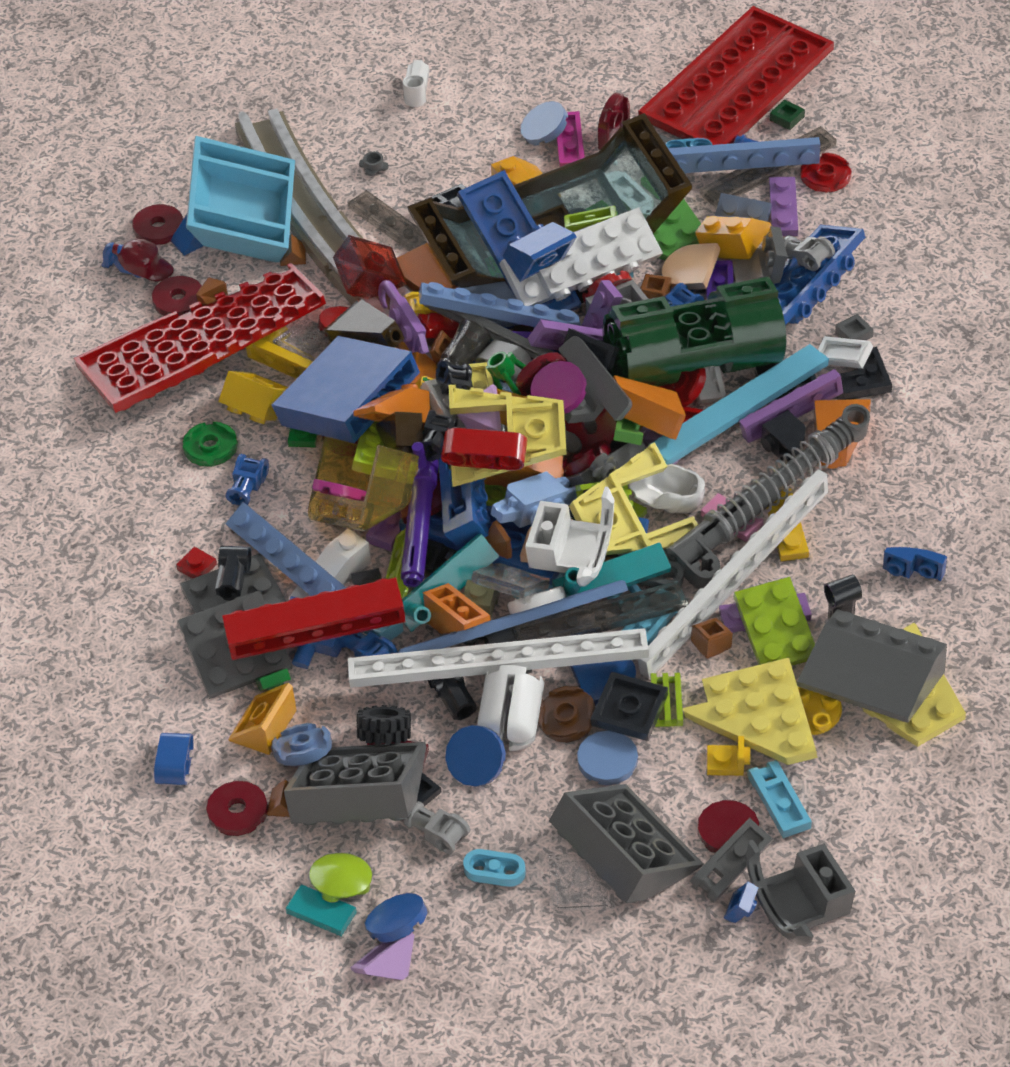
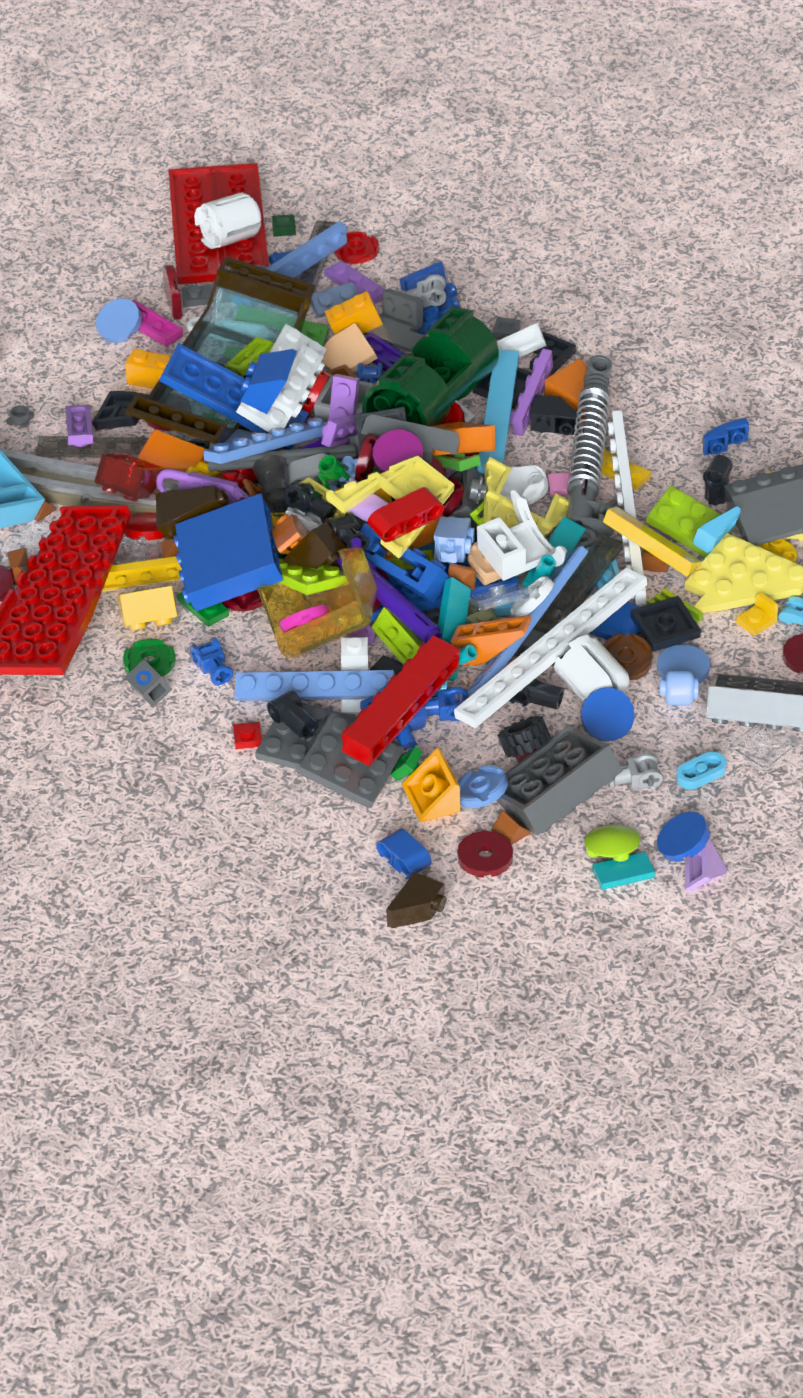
camera: 45 degrees left, 5 degrees down
(127, 808) = (416, 901): none -> dark brown slope
(173, 464) = (148, 683): none -> dark grey brick
(398, 198) = (79, 425): none -> medium lavender plate
(568, 774) = (679, 688): none -> light blue head
(705, 618) = (651, 541): none -> yellow slope
(729, 81) = (228, 220): none -> white cylinder
(776, 647) = (713, 531): none -> medium azure slope

